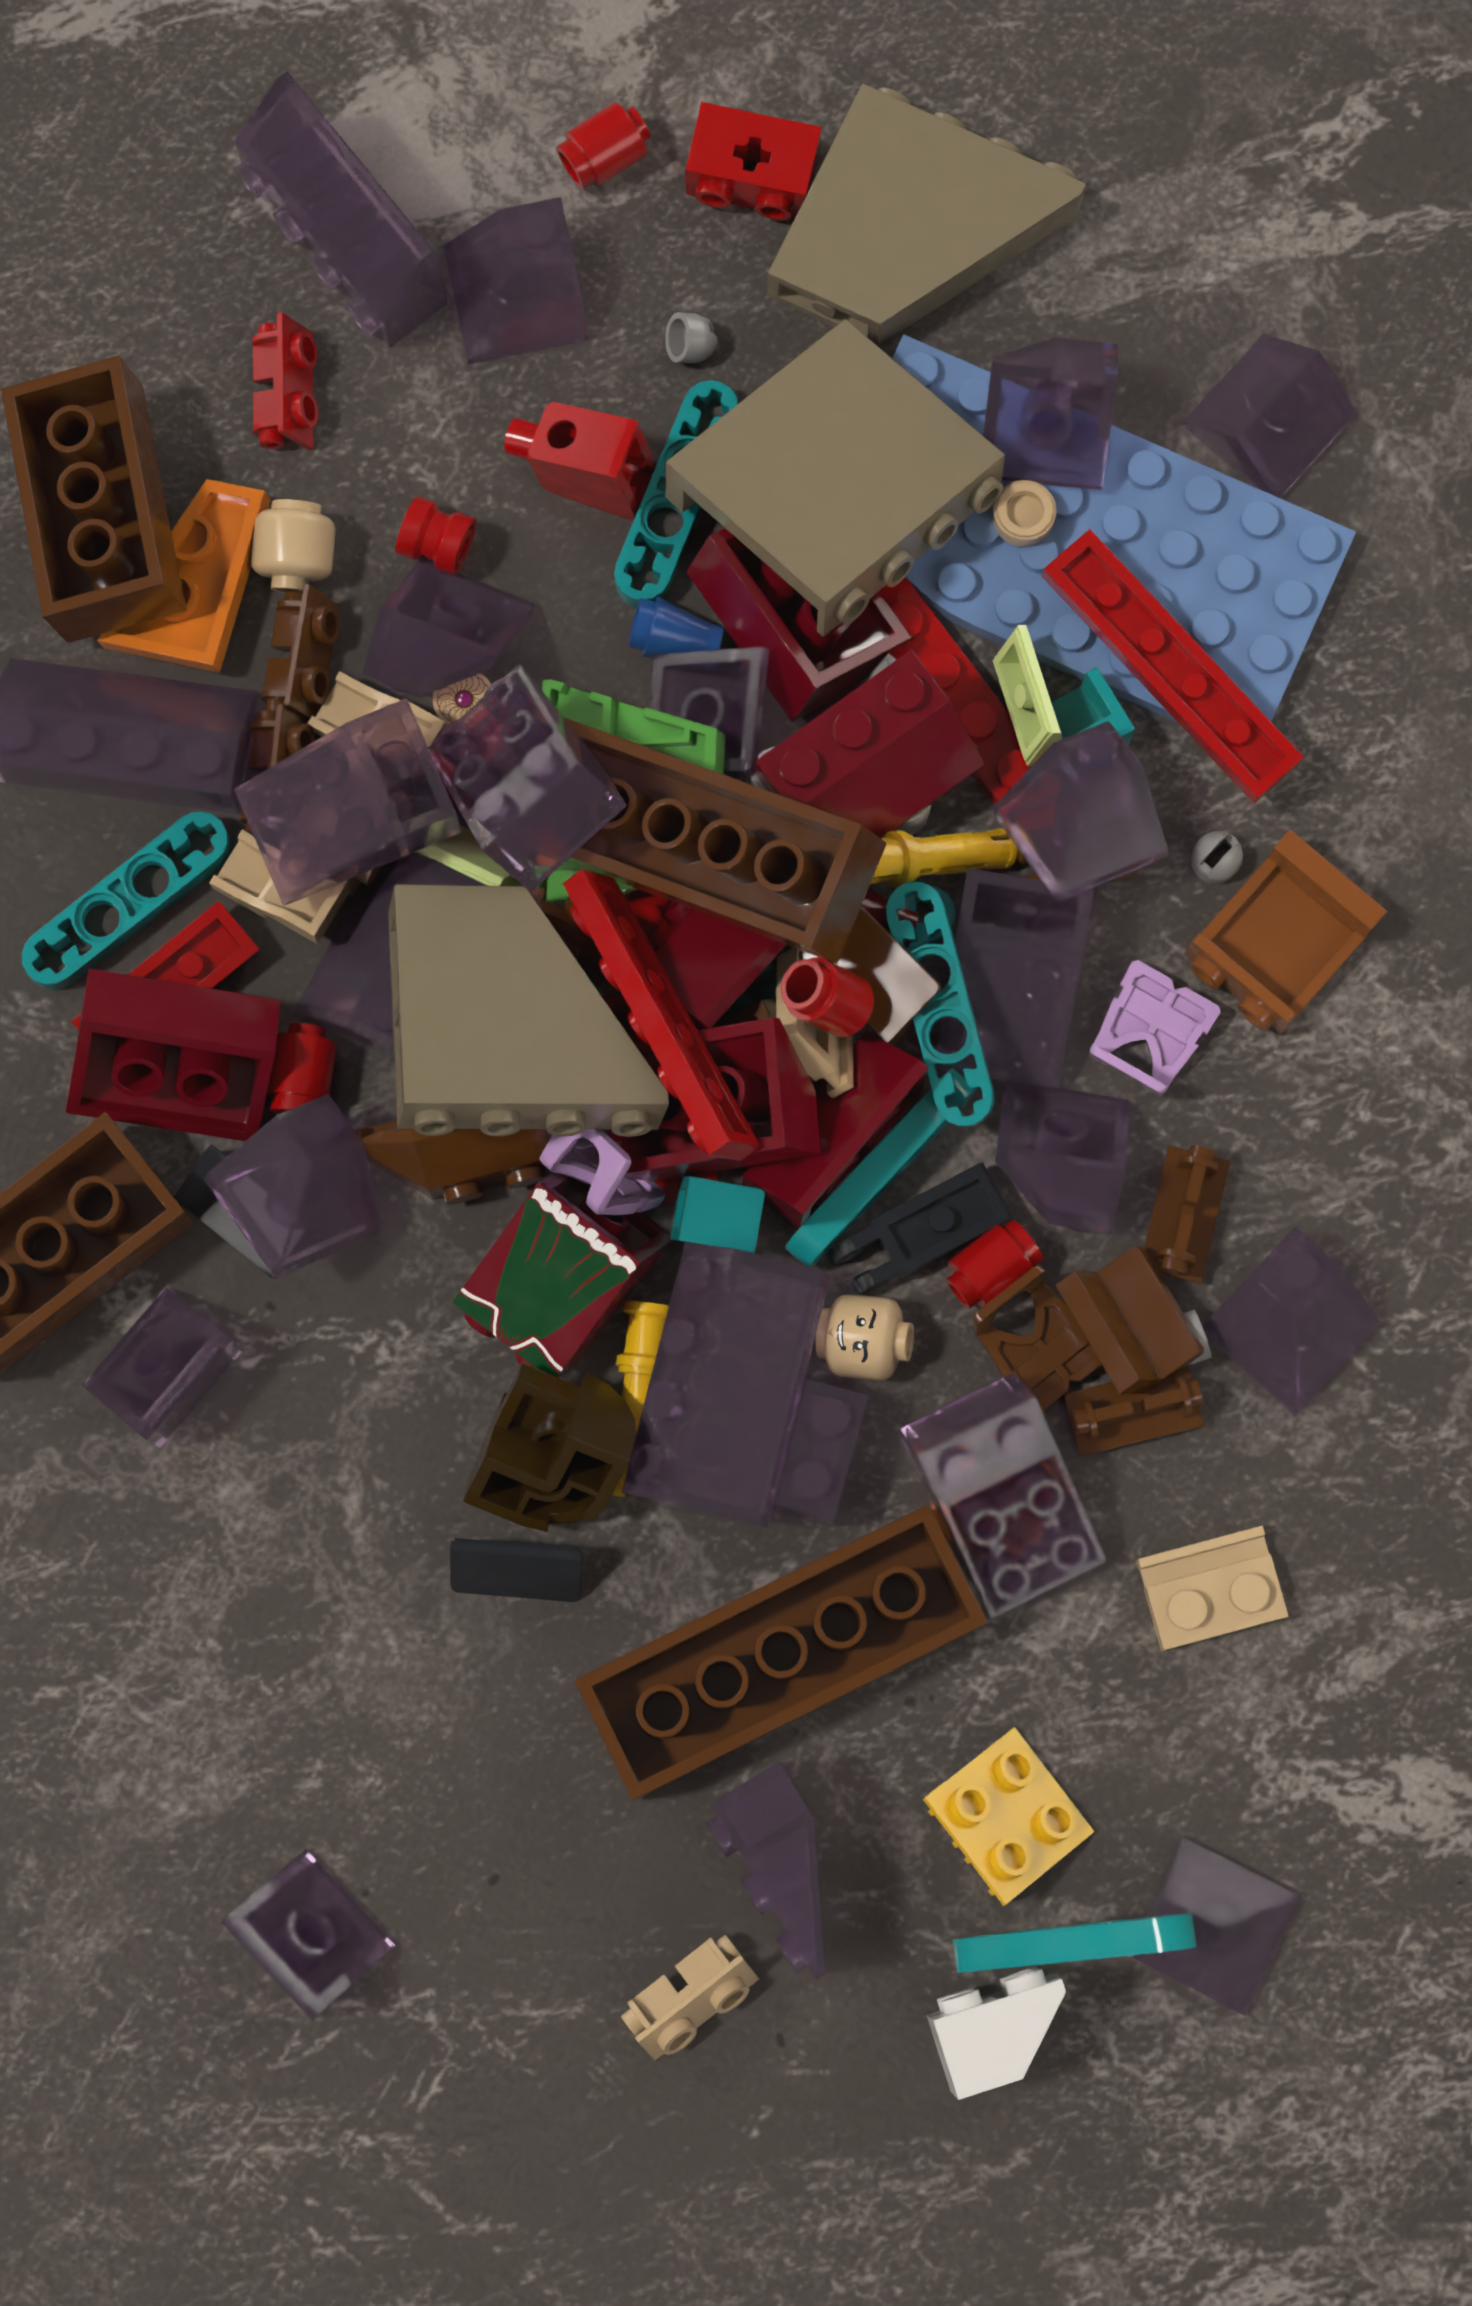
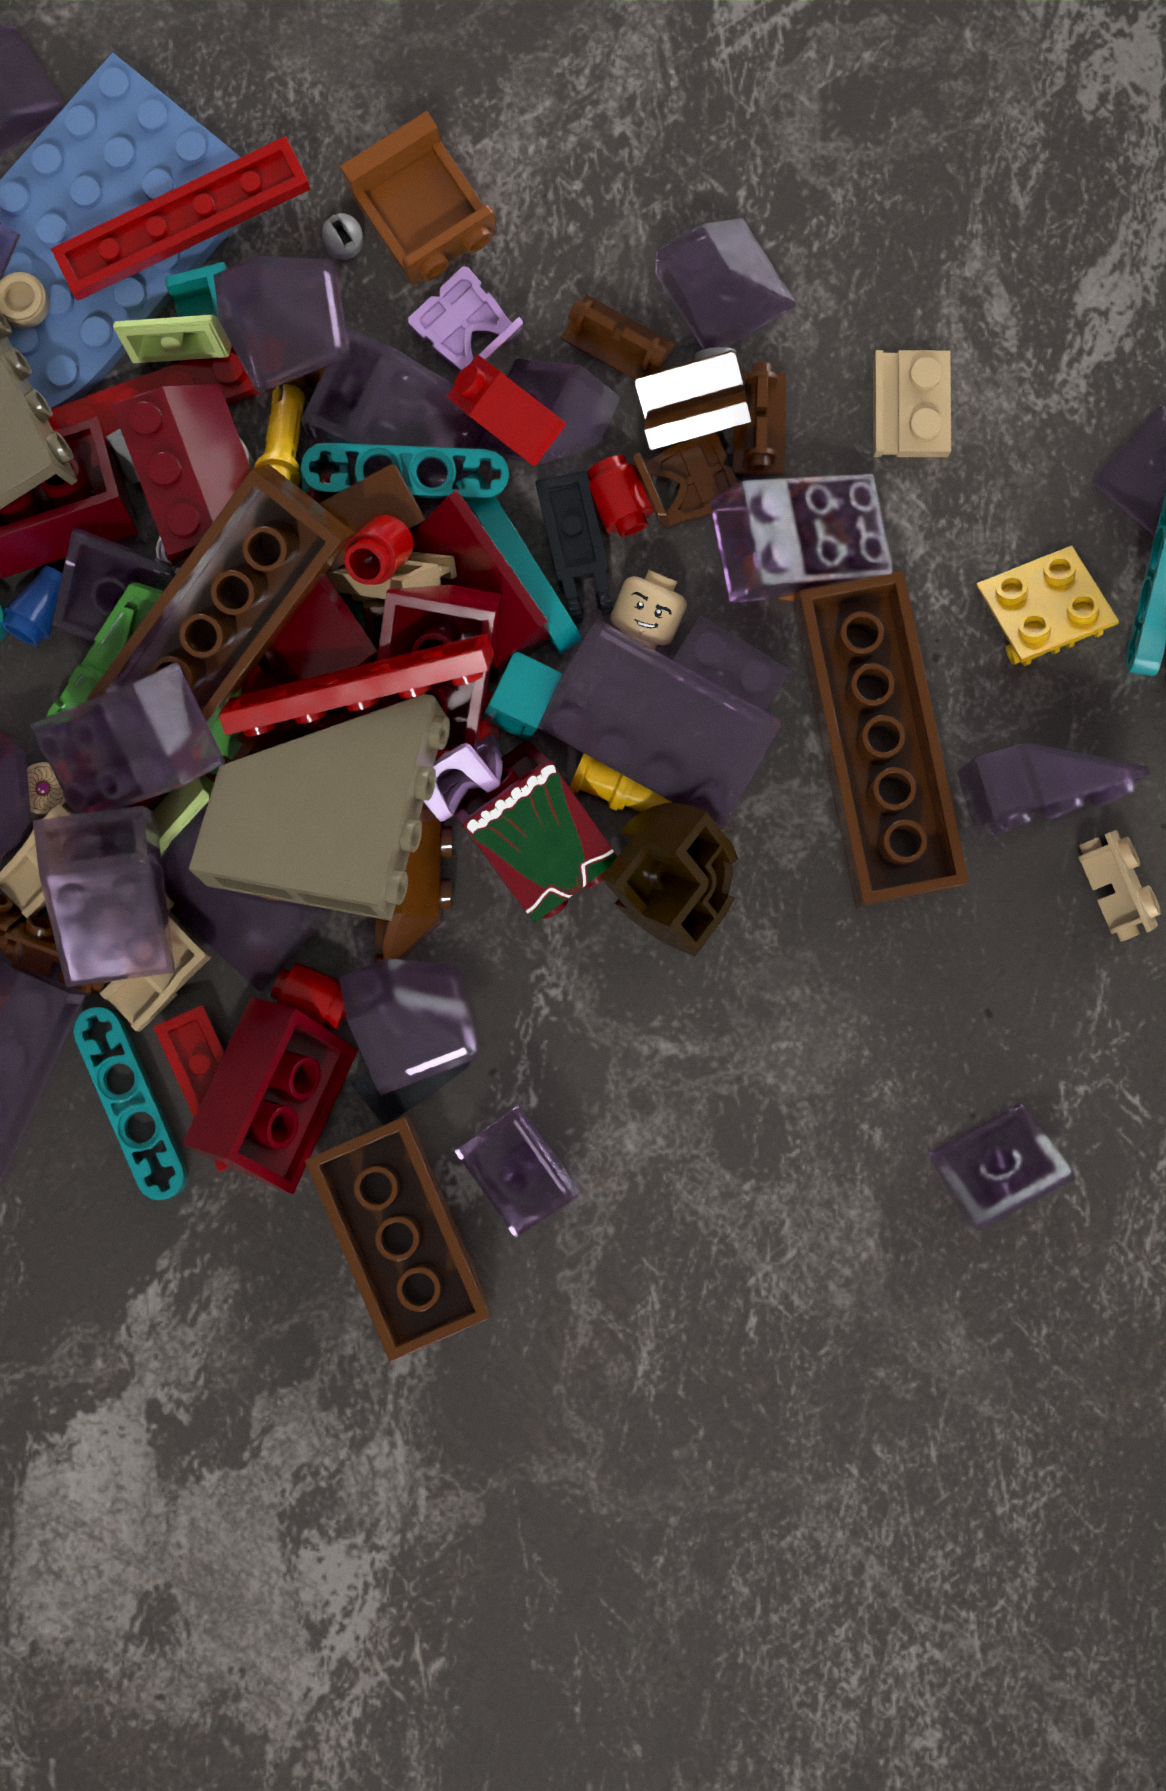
camera: 70 degrees left, 5 degrees up
(515, 1570) = (756, 931): black slope -> none
(1048, 1100) = (505, 410): none -> red slope

